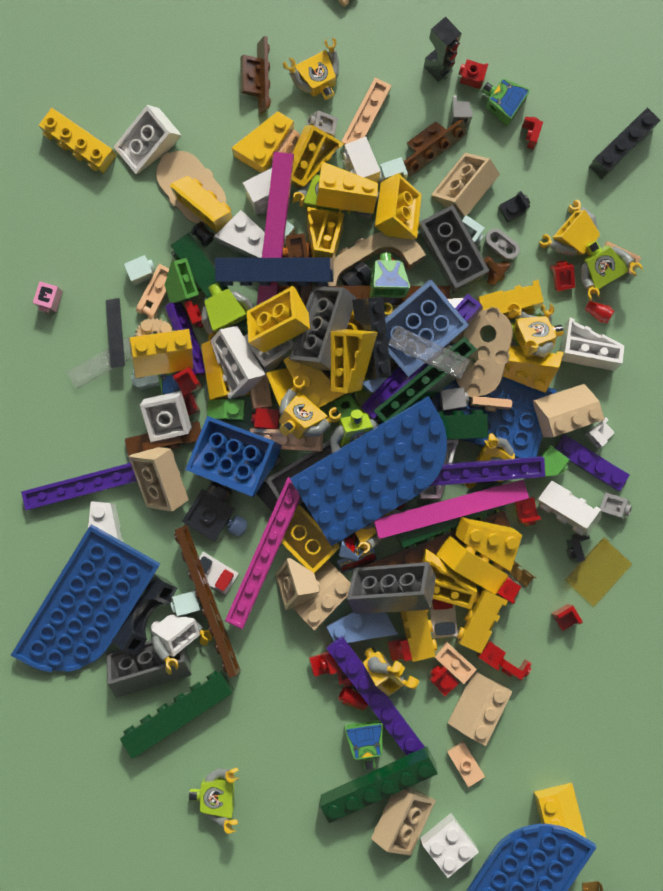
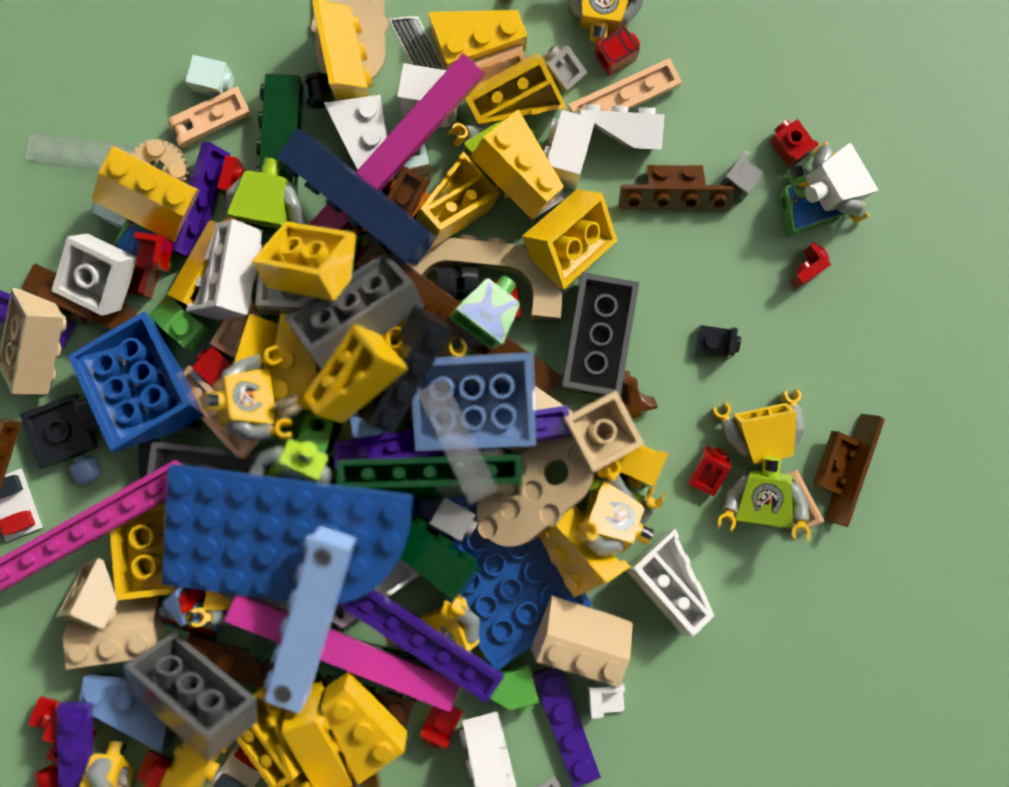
camera: 30 degrees right, 0 degrees up
(47, 297) = (76, 27): bright pink brick -> none
(115, 333) = (123, 126): black sticker -> none
(180, 281) = (242, 126): bright green slope -> none
(233, 170) = (416, 42): none -> sticker
(325, 403) = (287, 406): none -> dark tan bush
(344, 94) = (617, 50): none -> red brick
(384, 130) = (630, 129): none -> white slope
(391, 168) = (603, 182): light aqua brick -> none
(424, 499) = (309, 618): none -> light blue piece
(445, 40) = (778, 79): black arch -> none
(466, 183) = (679, 269): tan slope -> none
(473, 229) = (644, 327): light aqua bracket -> none
(491, 404) = (495, 560): light nougat plate -> none
(497, 291) = (603, 431): none -> tan slope
(503, 242) = (666, 375): light grey plate -> none
(514, 74) = (840, 181): none -> white torso
(599, 311) = (721, 550): red cone -> none
(624, 142) = (912, 366): black arch -> none
(631, 220) = (846, 466): none -> reddish brown bracket

